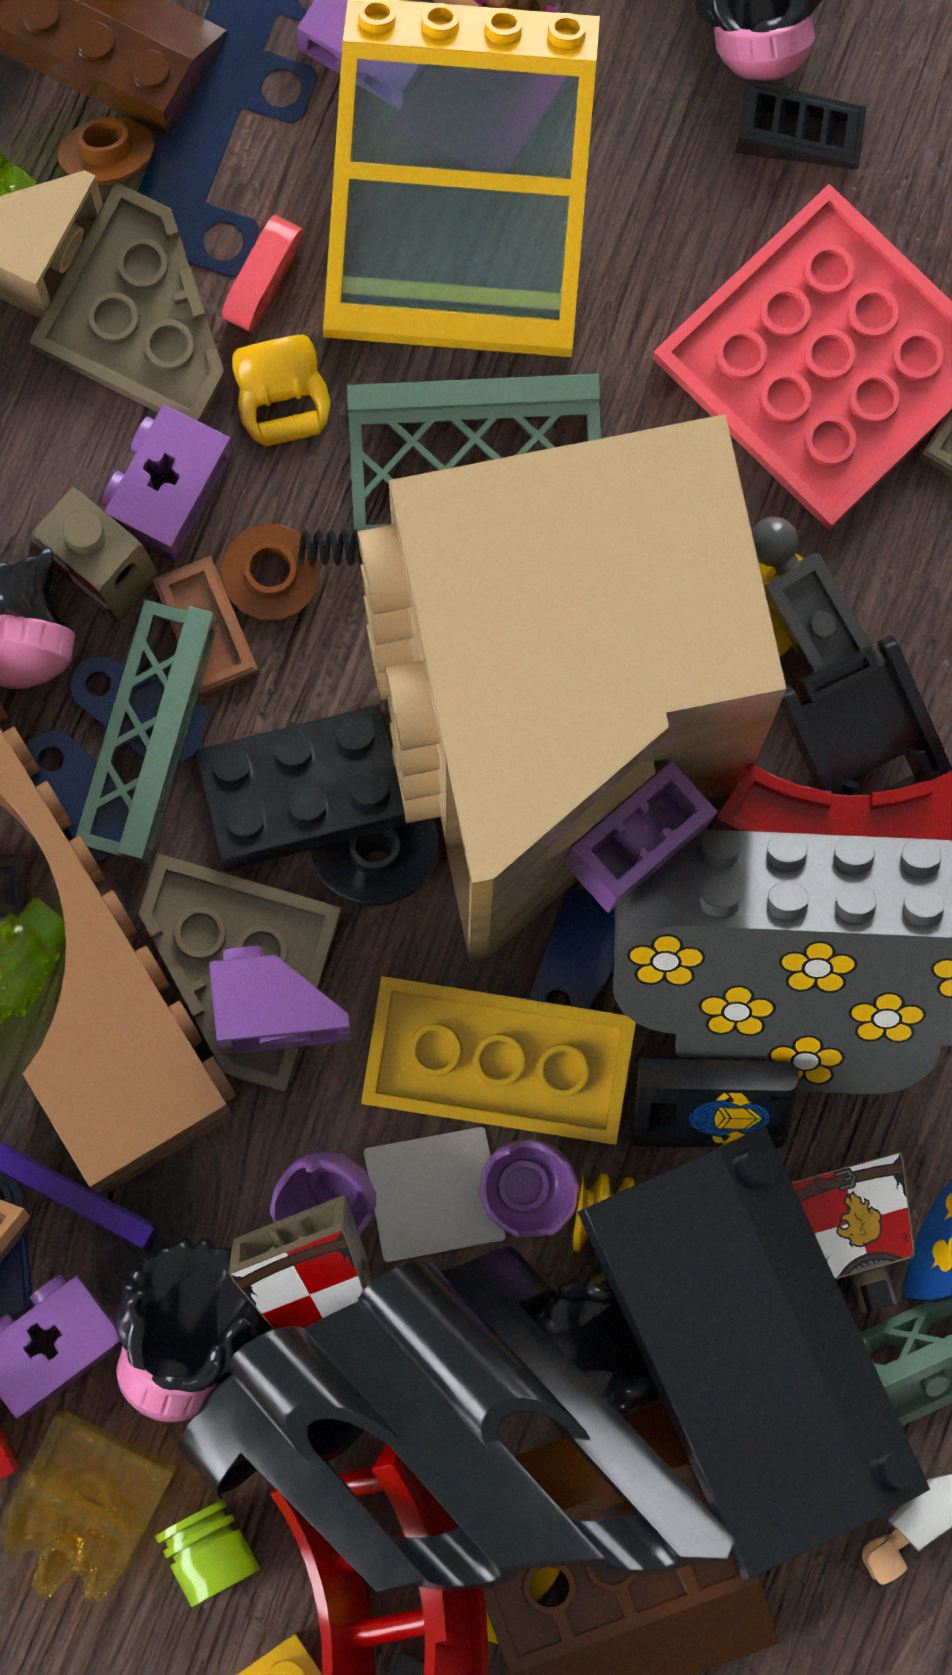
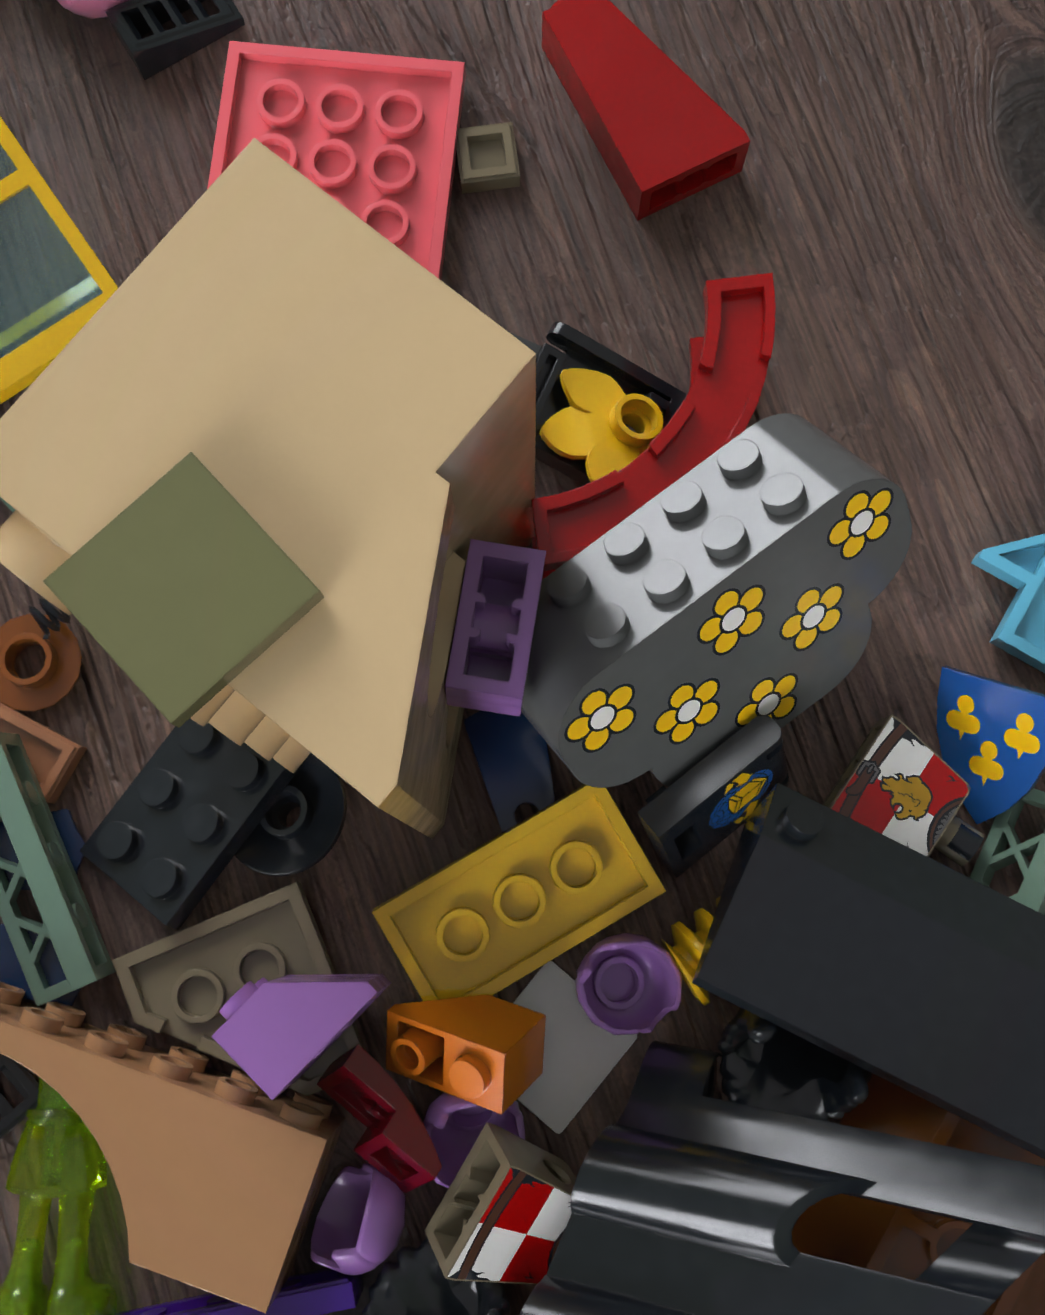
camera: 35 degrees left, 0 degrees up
(190, 1194) = (358, 1221): none -> medium lavender hair
(270, 1152) = (395, 1134): none -> dark red slope
(373, 1132) = (468, 1047): none -> orange slope
(463, 666) = (184, 590): none -> olive tile
(855, 740) = (596, 421): none -> yellow plate

